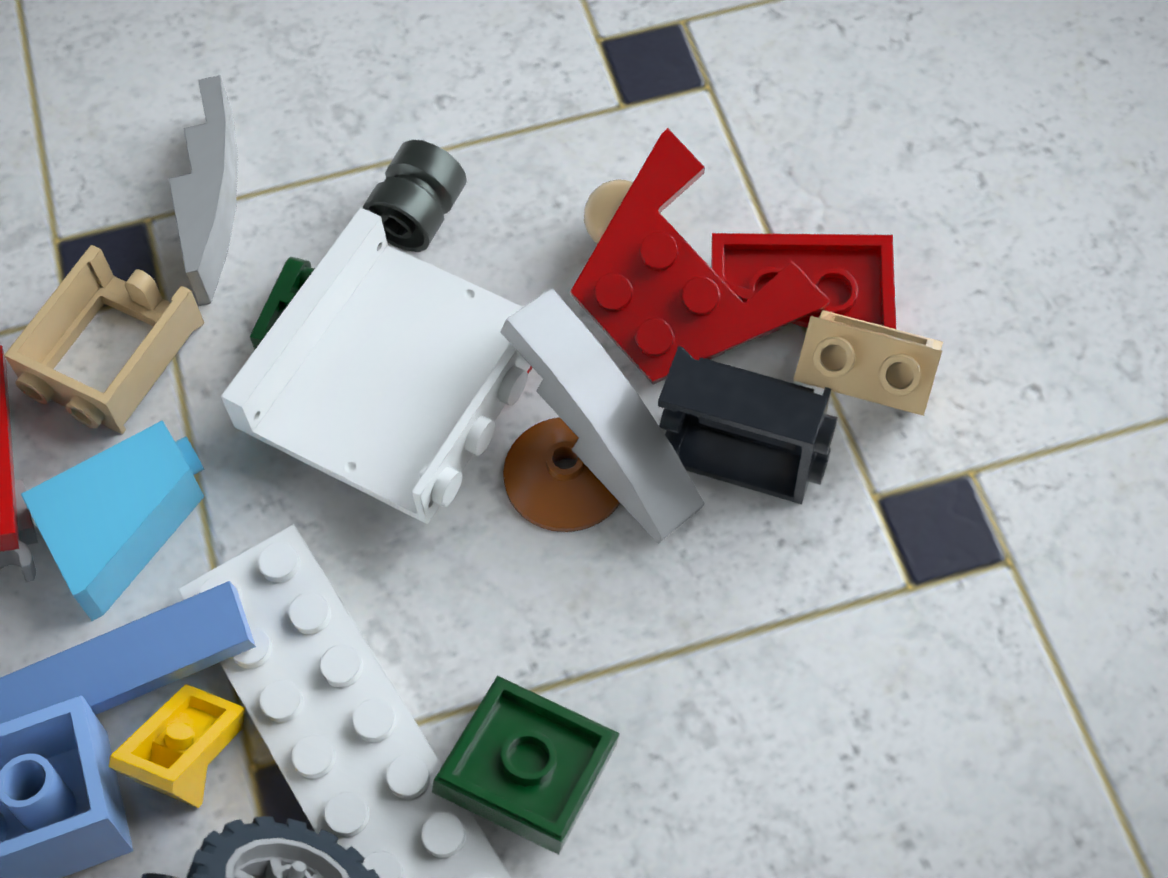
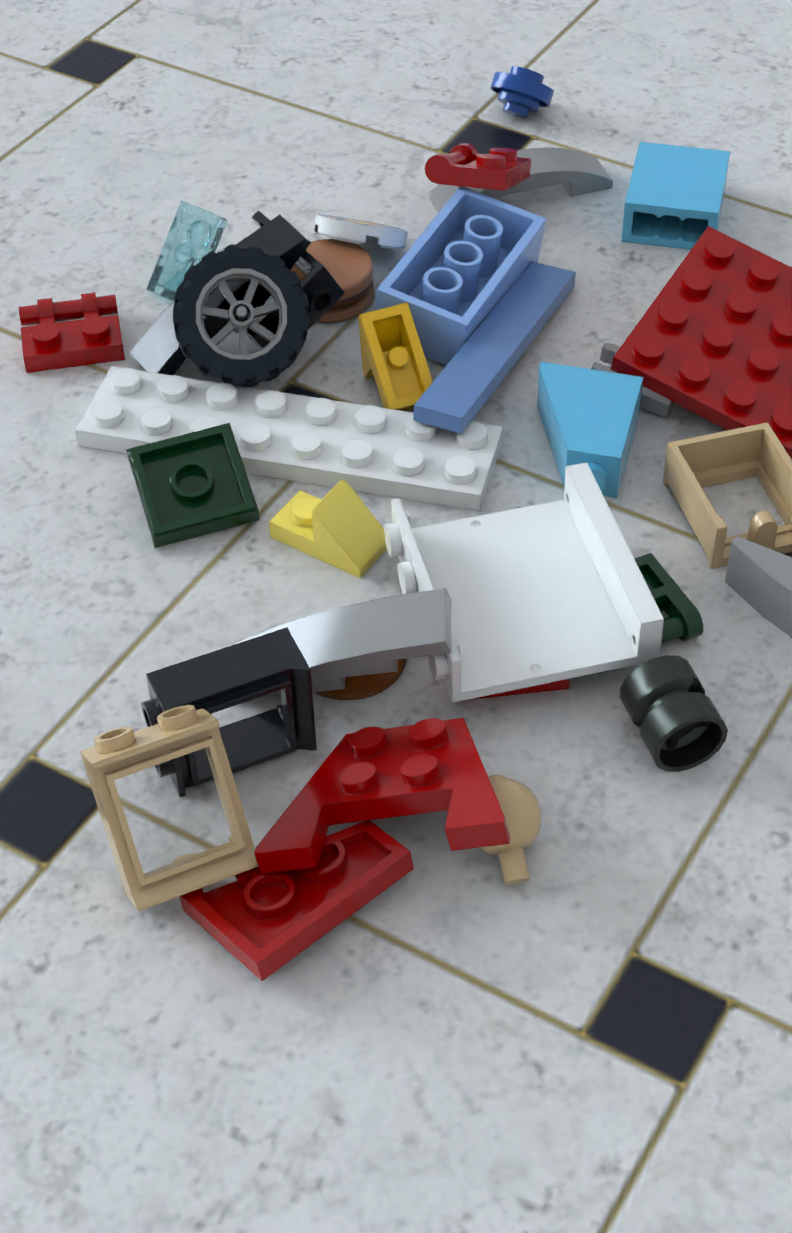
camera: 135 degrees right, 15 degrees down
(455, 612) = (331, 529): none -> light yellow slope

